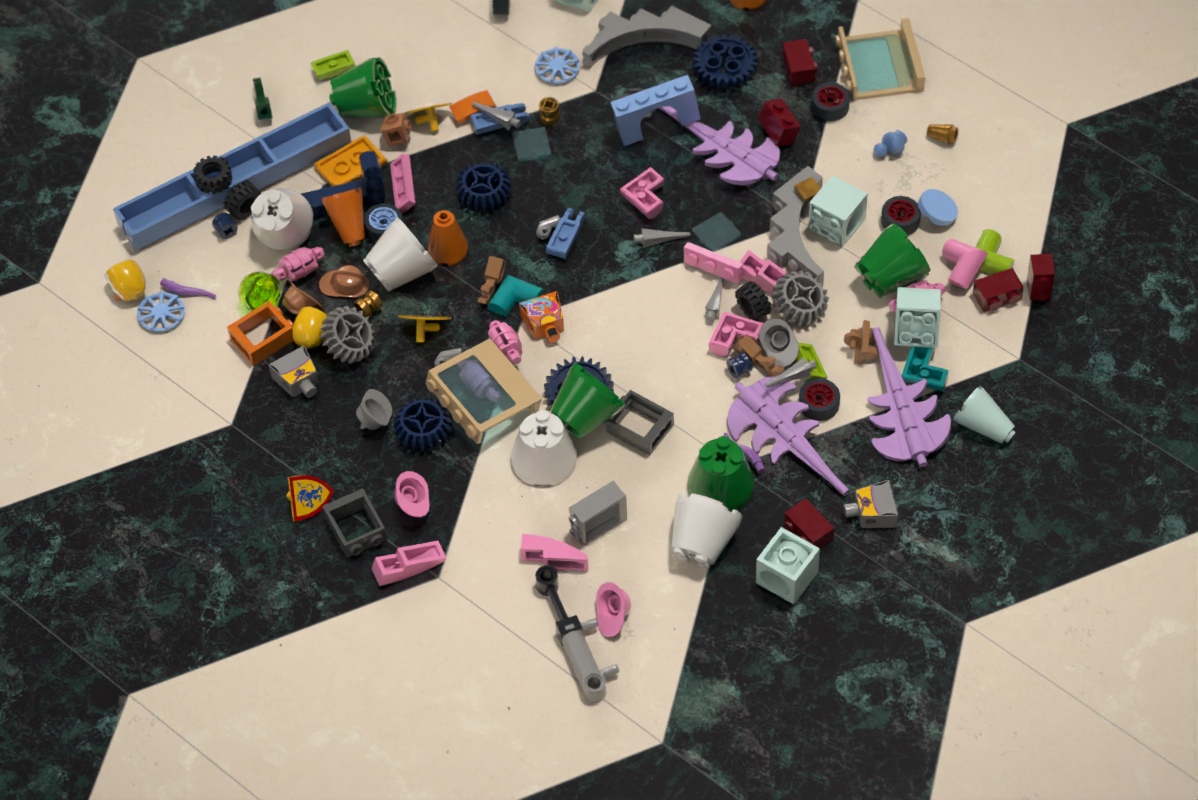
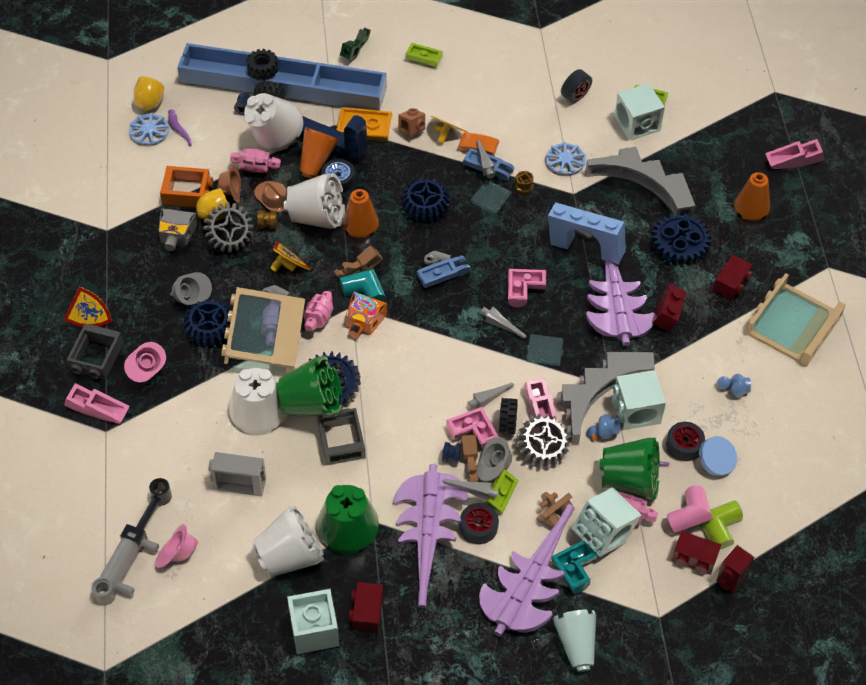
camera: 40 degrees right, 0 degrees up
(258, 289) = (212, 157): clear neon green cylinder -> none
(364, 91) = (419, 83): green cone -> none
(402, 183) = (378, 160): bright pink plate -> none
(553, 553) = (183, 475): bright pink slope -> none
(713, 263) = (513, 368): bright pink plate -> none
(753, 457) = (390, 520): medium lavender animal -> none
(807, 189) = (632, 366): pearl gold tile -> none
(830, 101) = (725, 321): black wheel -> none
(834, 251) = (606, 428): none -> medium blue animal
(874, 506) = (427, 633): light grey torso -> none
(943, 132) = (784, 407): pearl gold cone -> none

